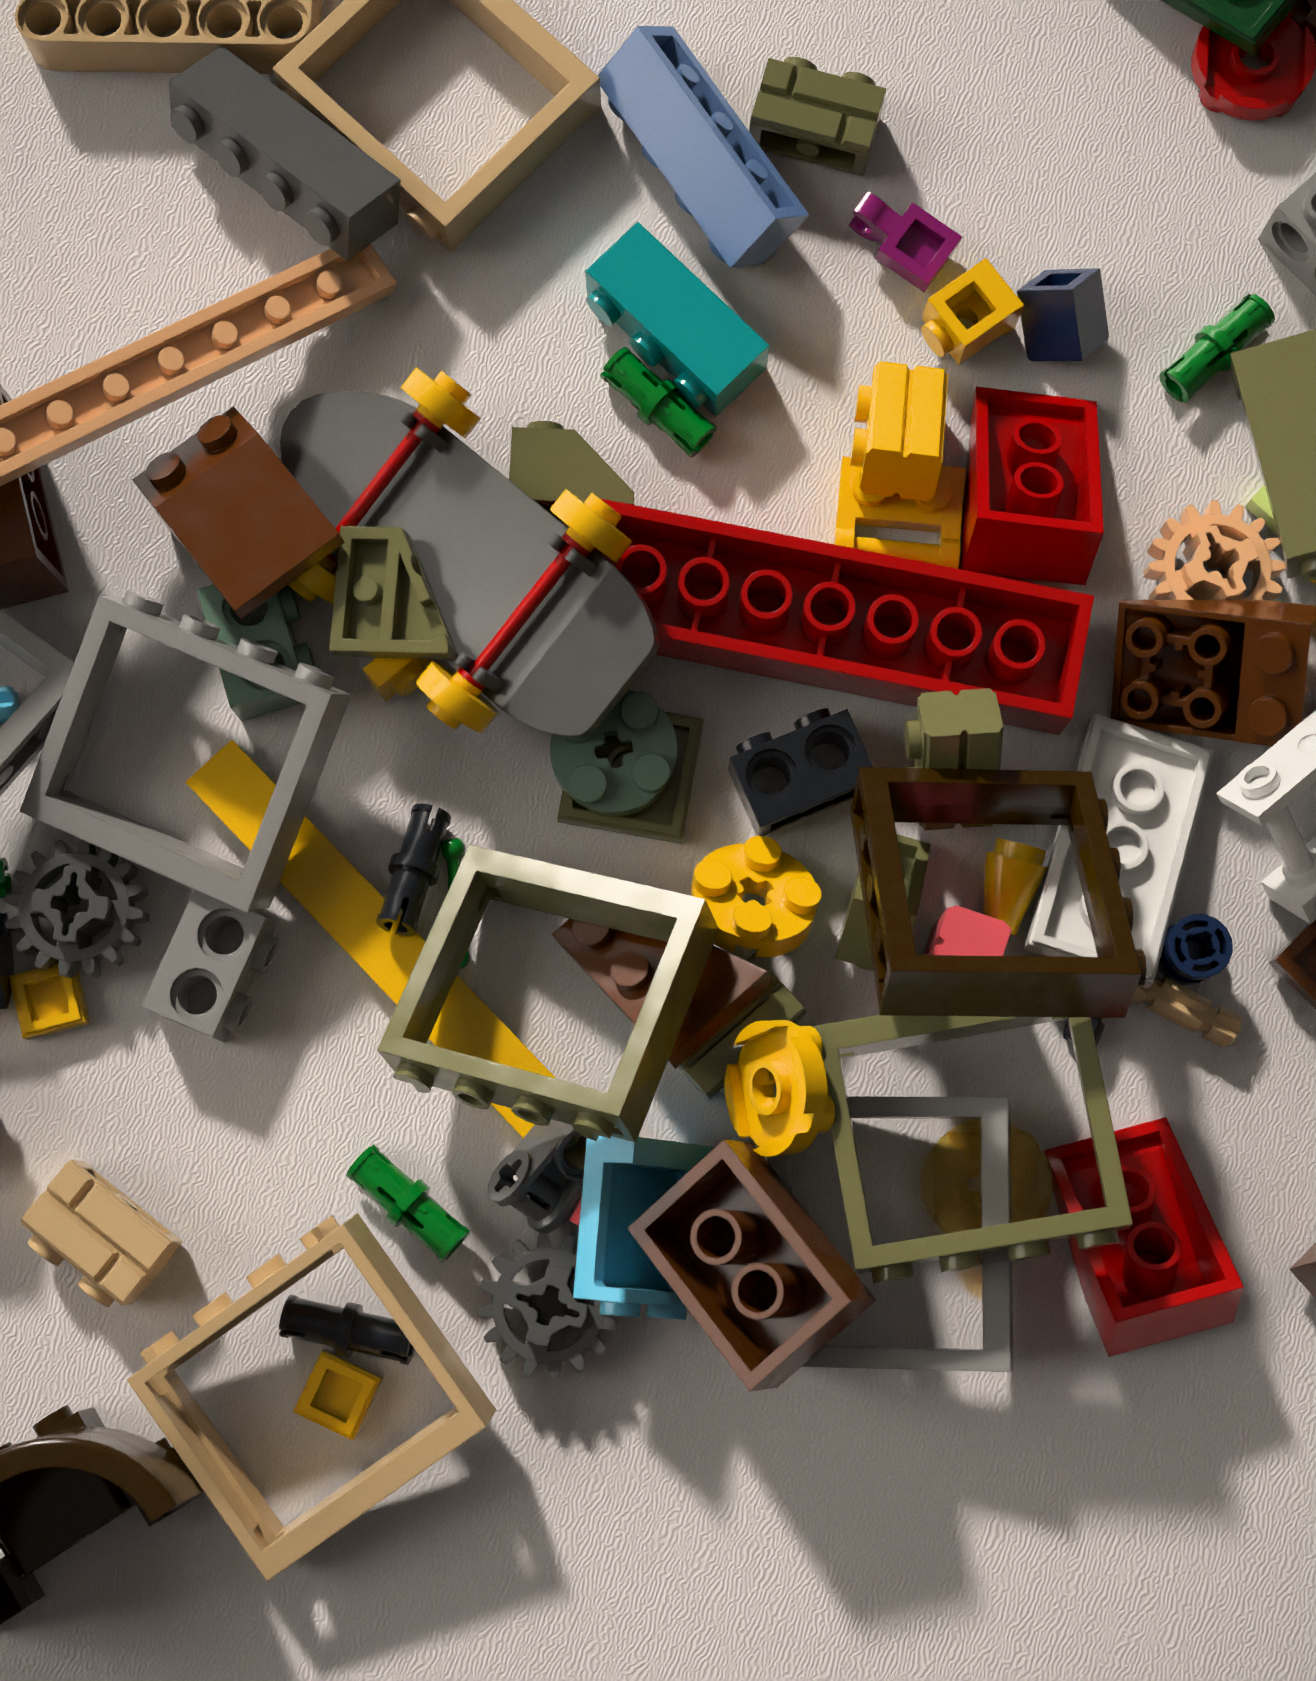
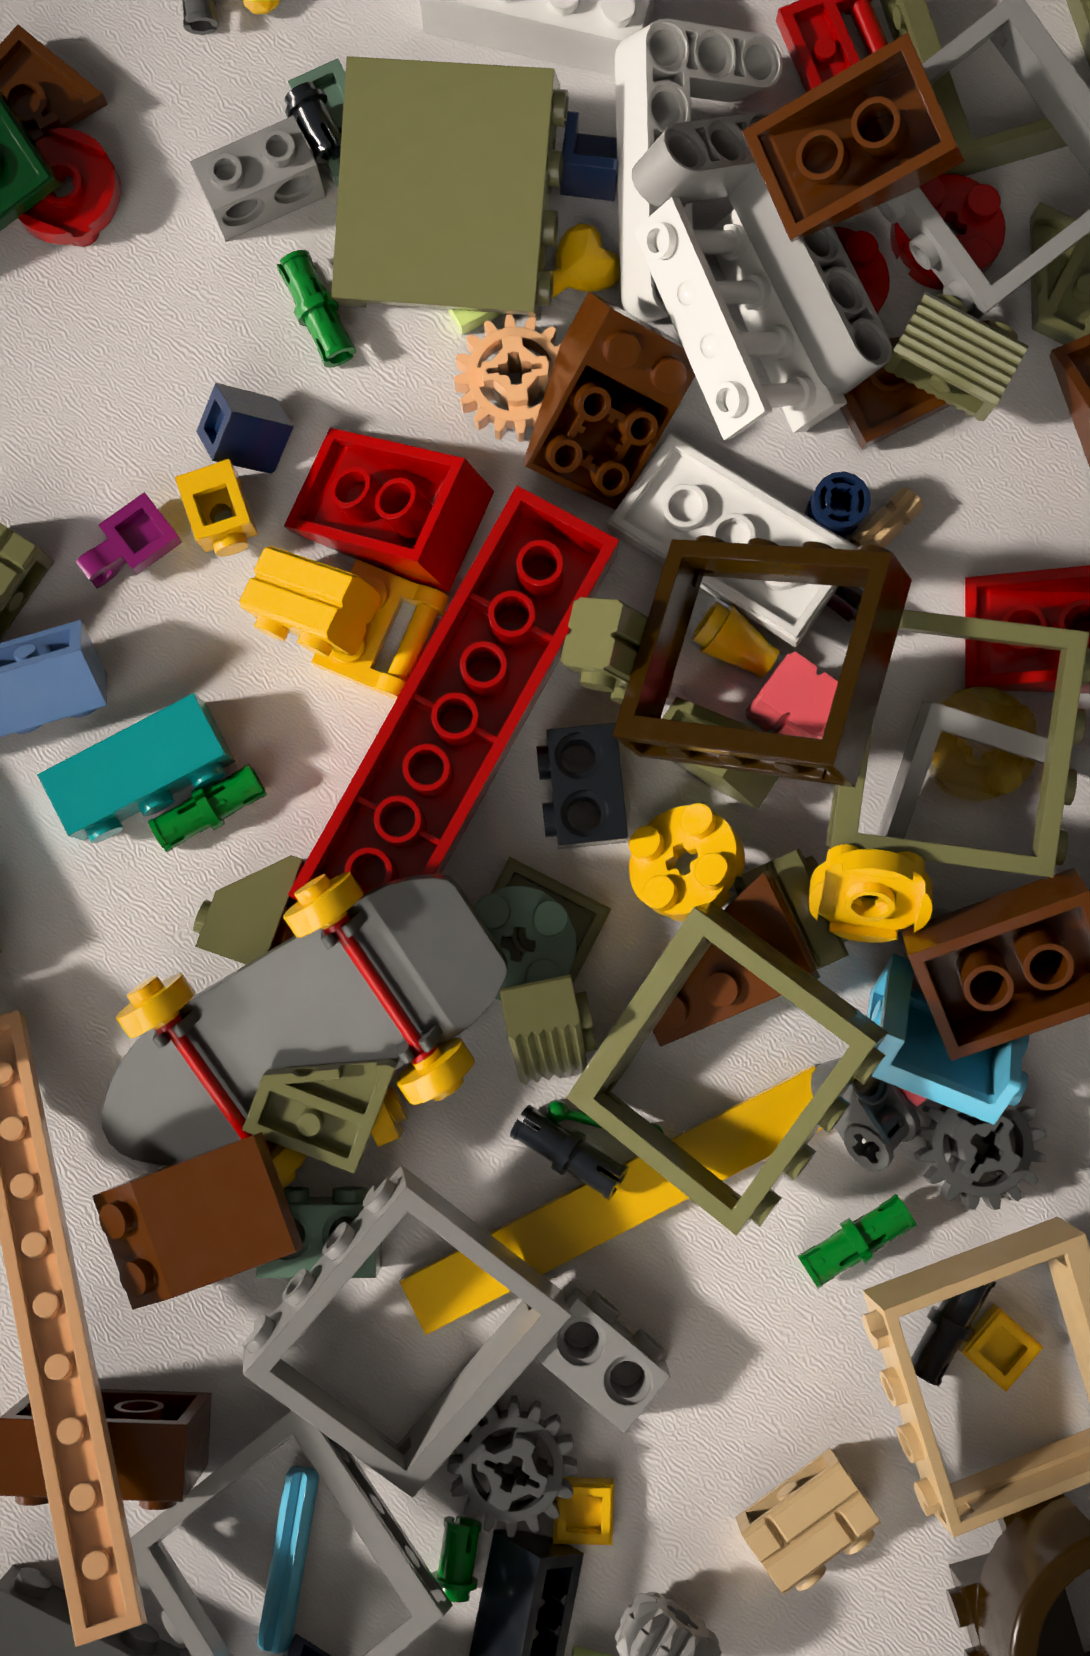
camera: 75 degrees left, 5 degrees up
(534, 800) = (547, 1028): none -> olive brick

